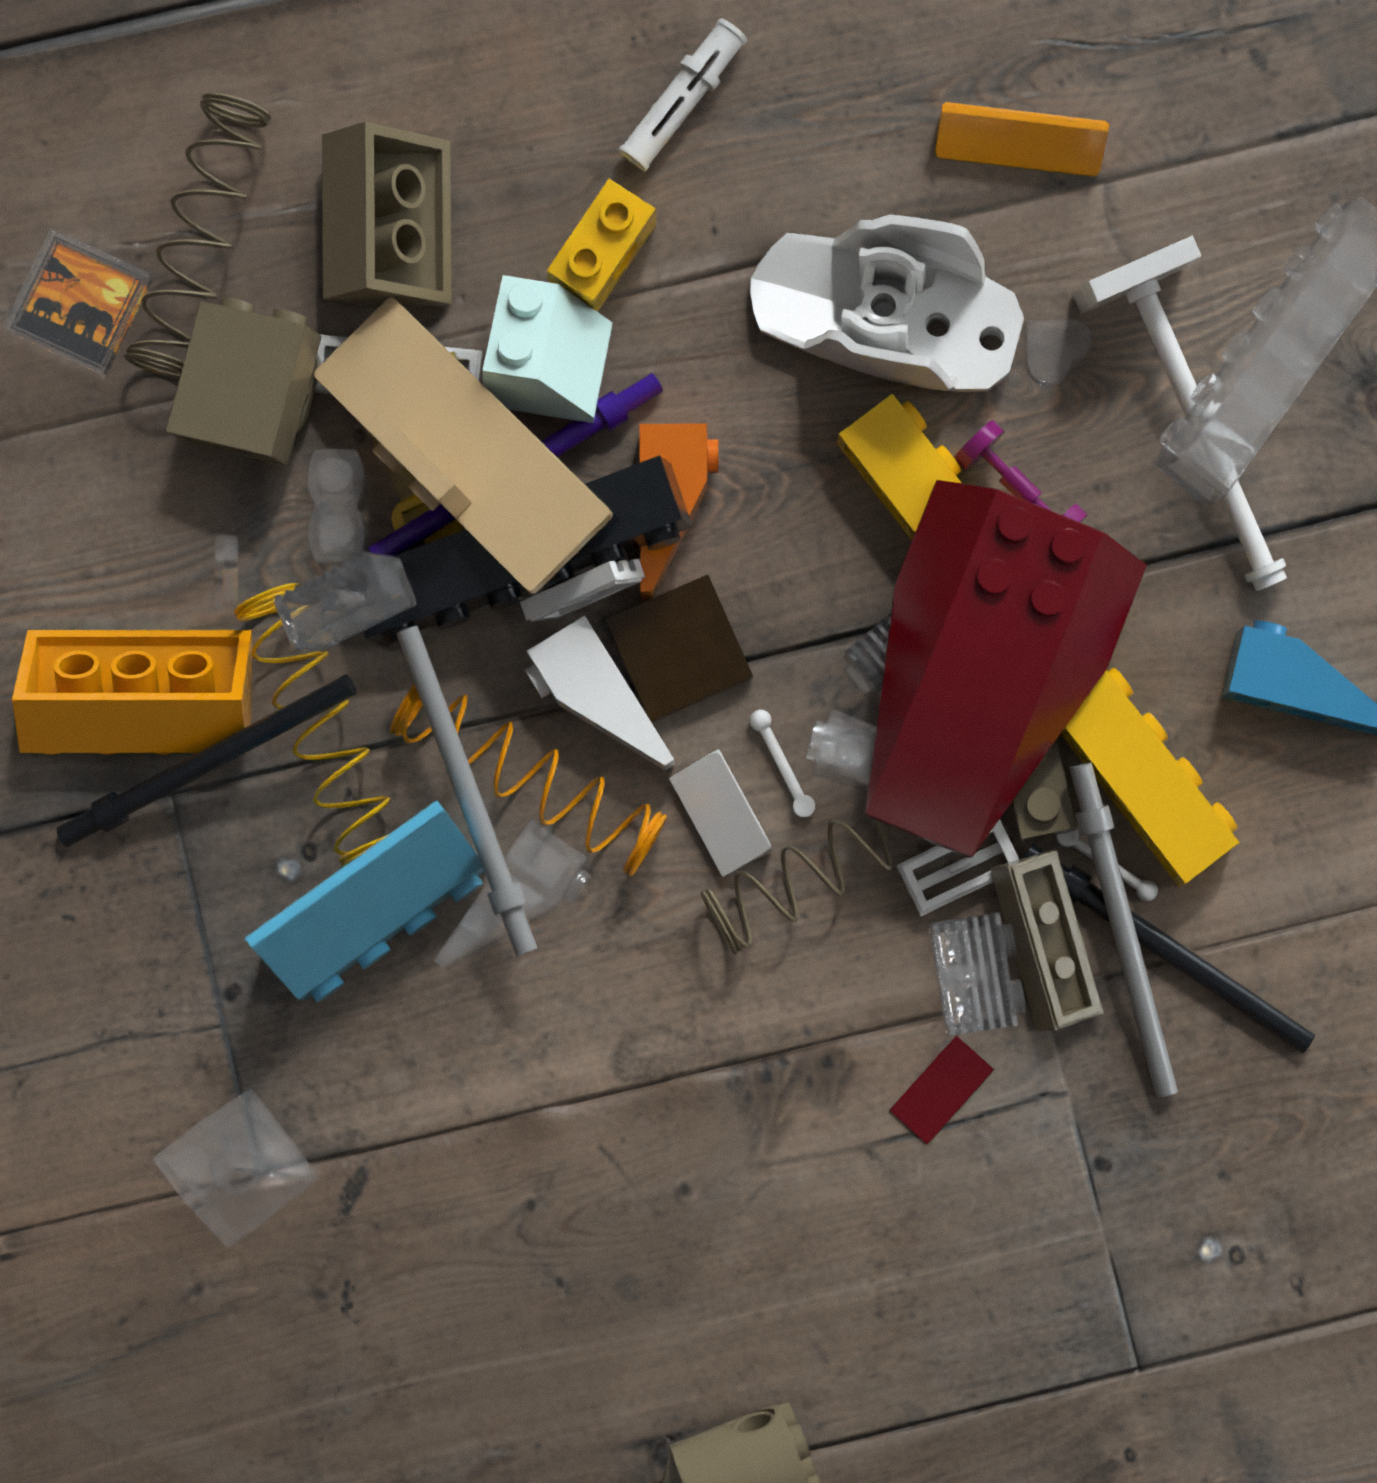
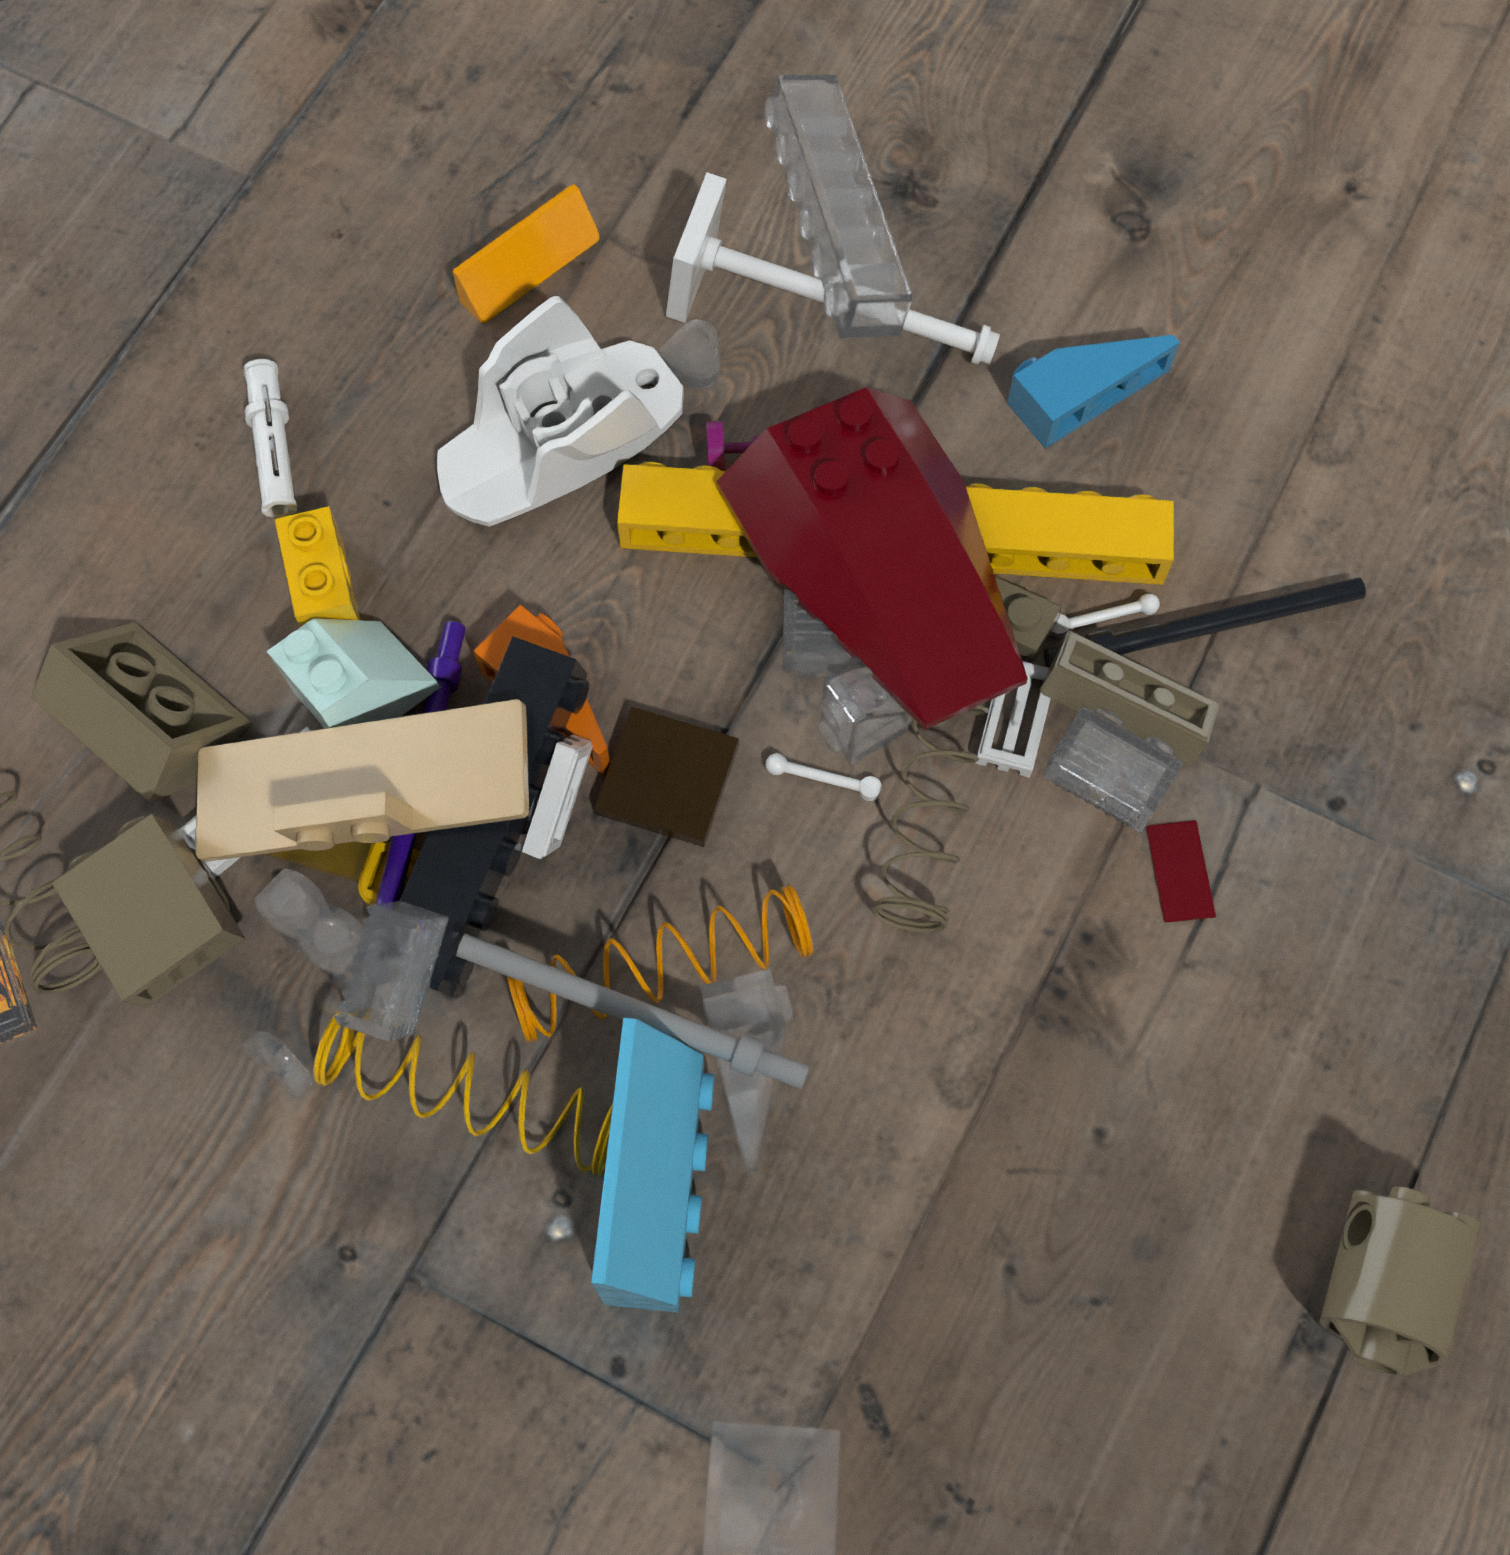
camera: 50 degrees left, 15 degrees down
(115, 809) = (377, 1329): black bar -> none
(132, 690) = (299, 1226): light orange slope -> none
(590, 686) = (640, 859): white slope -> none
(721, 813) = (822, 848): white slope -> none
(1095, 822) = (1072, 585): light grey bar -> none

